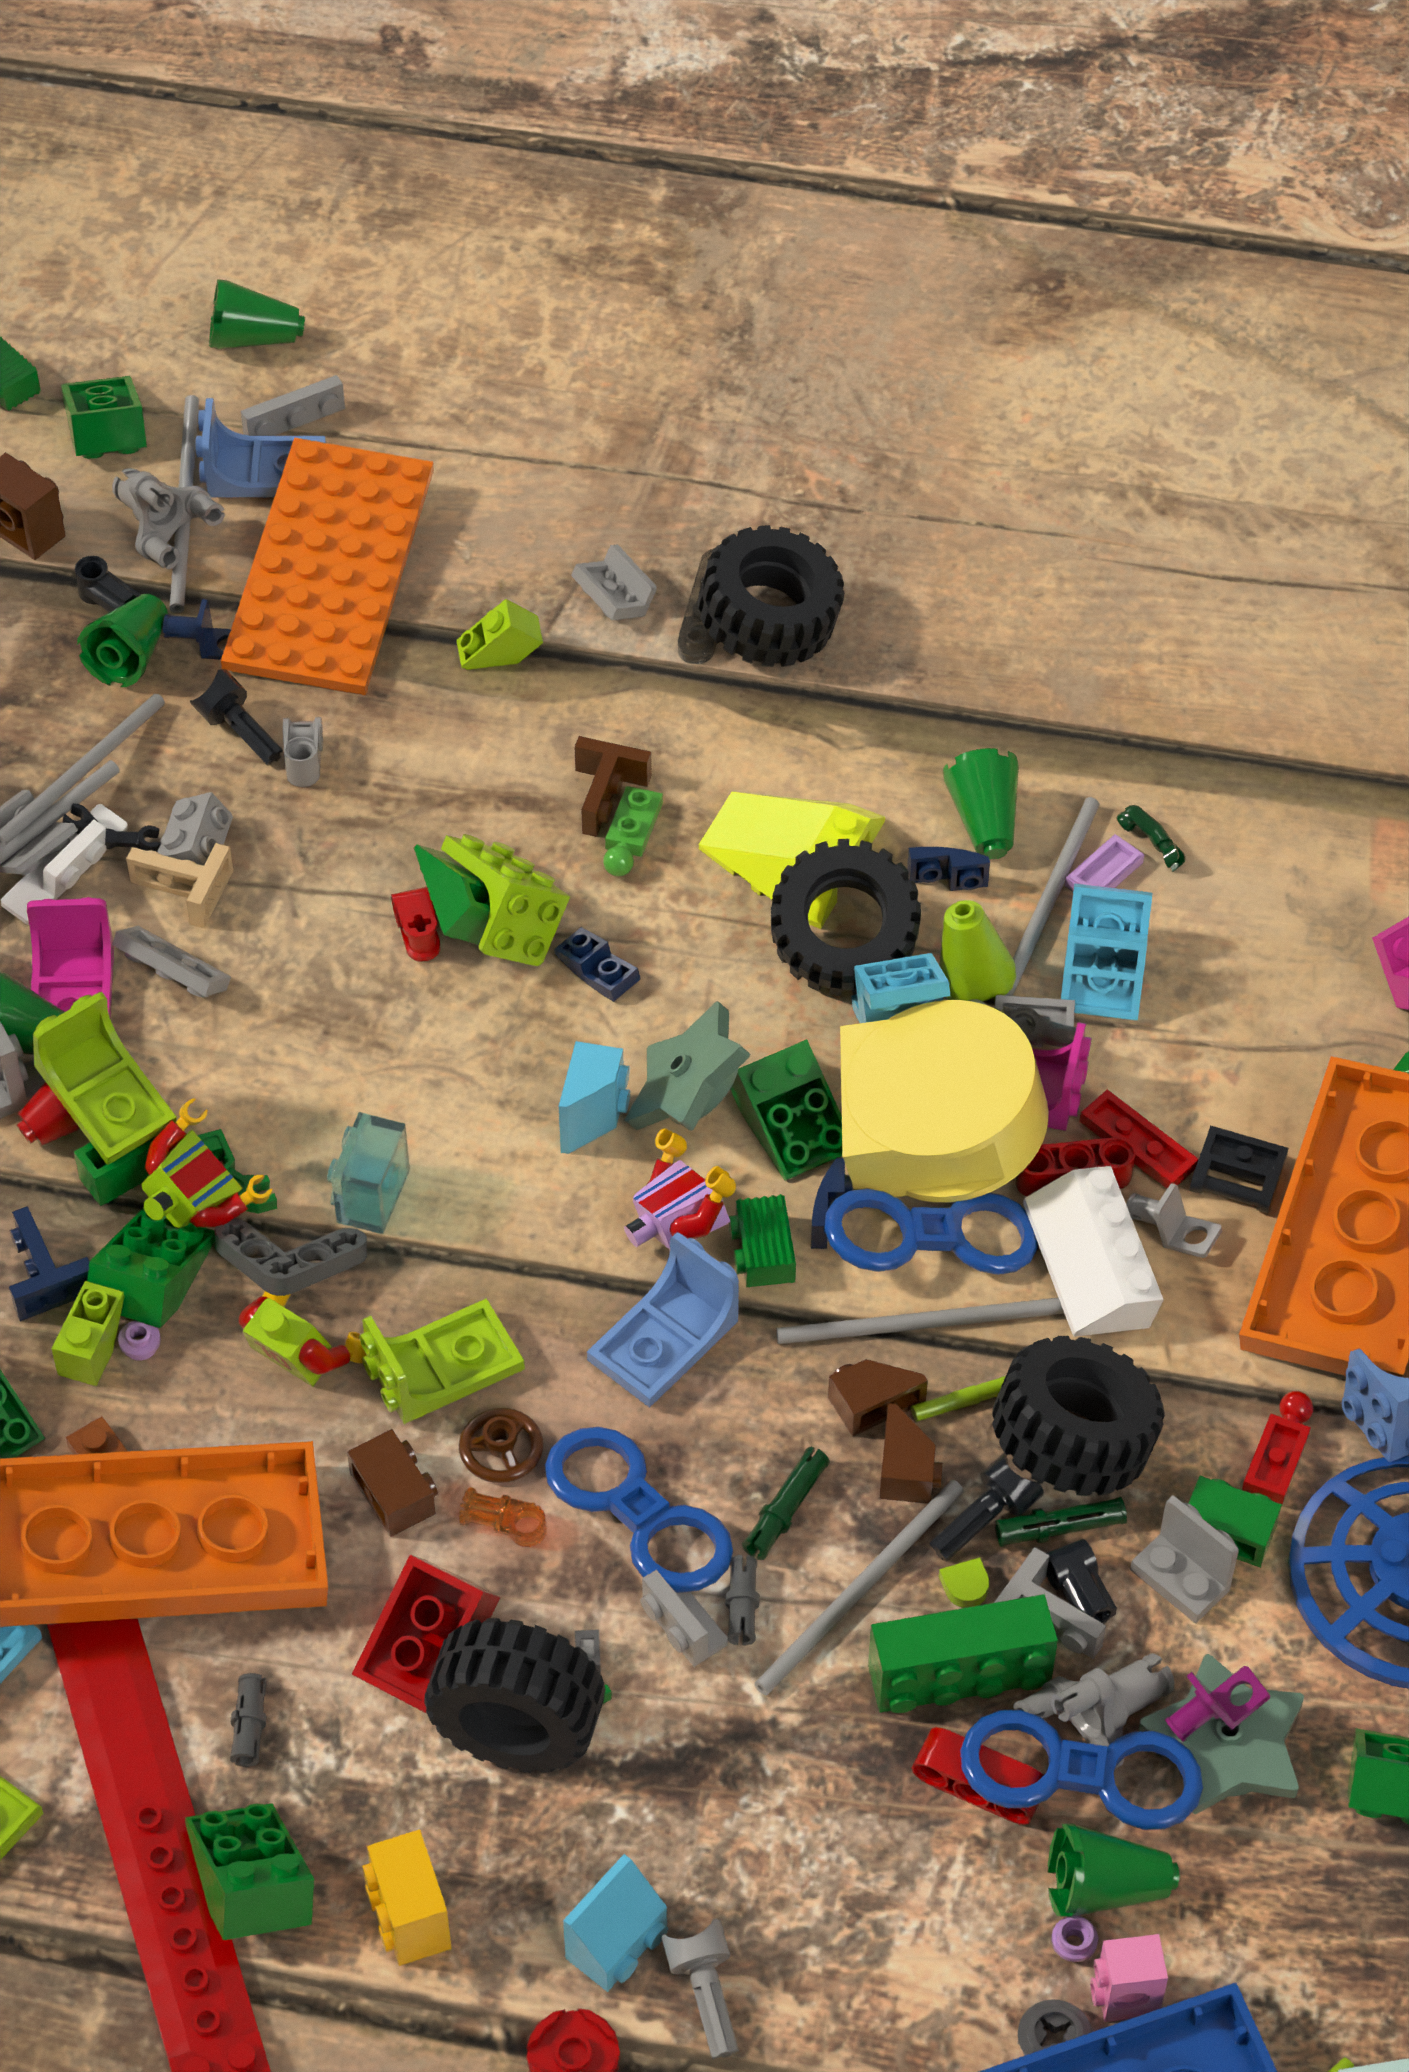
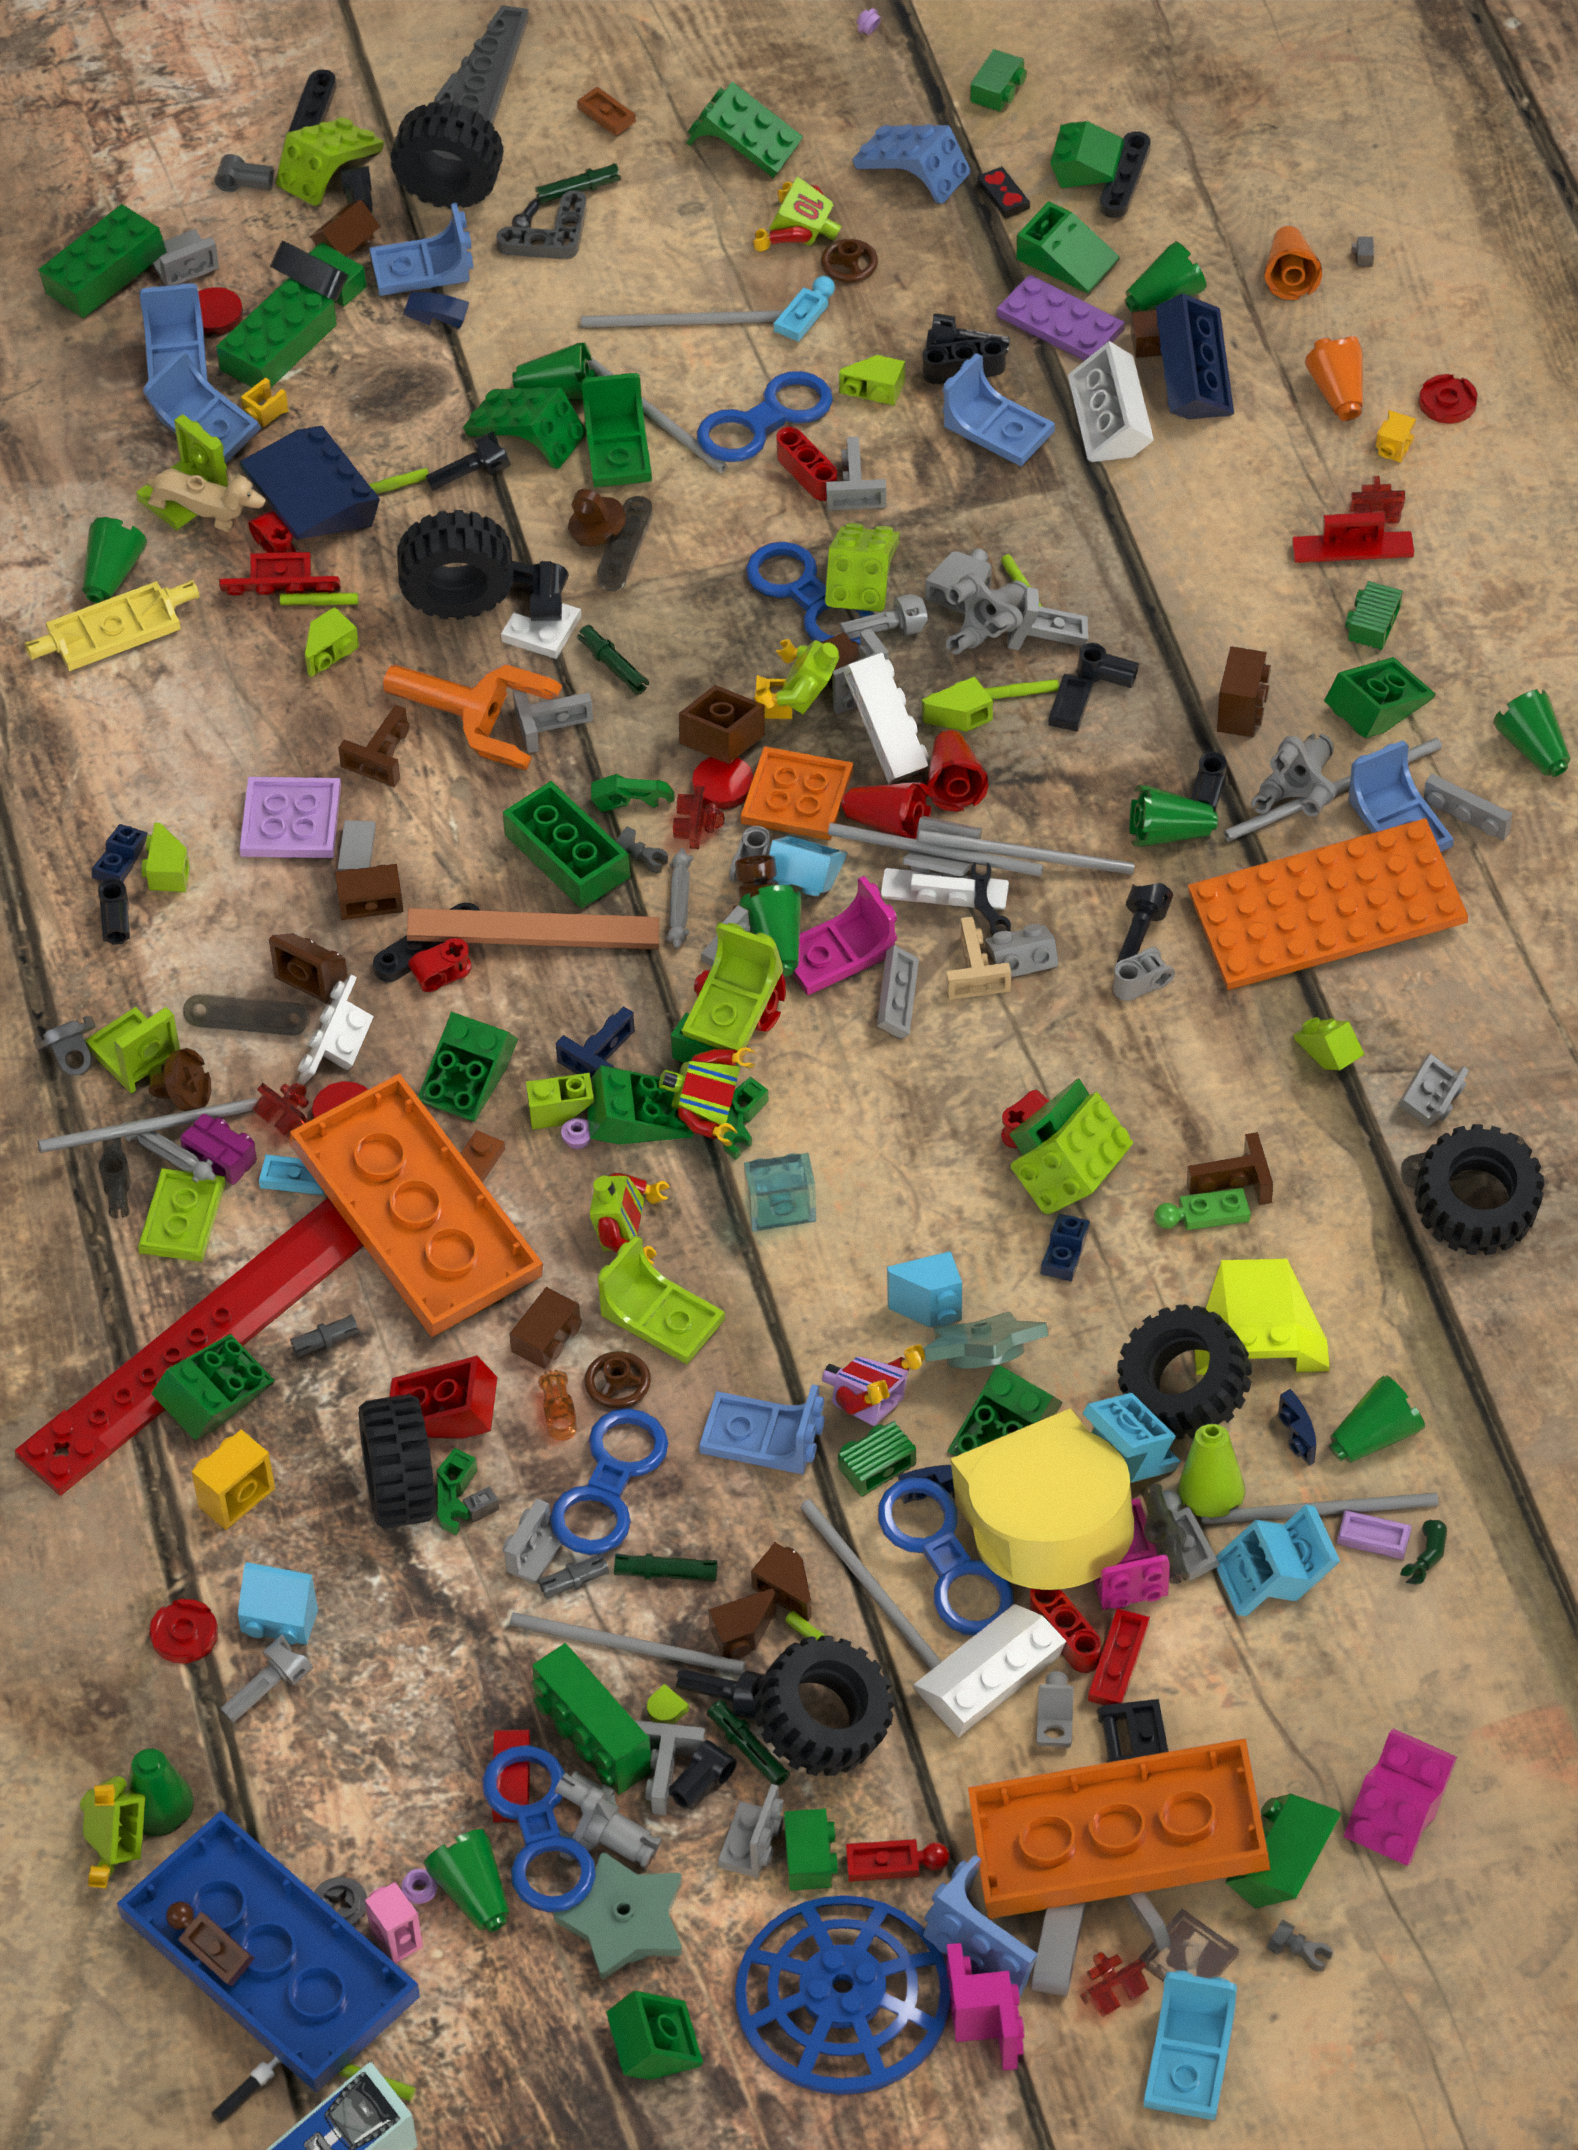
camera: 65 degrees right, 0 degrees up
(199, 629) = (1209, 857): dark blue bracket -> none
(289, 1271) = (677, 1178): dark grey beam -> none
(1217, 1704) = (630, 1885): magenta bracket -> none

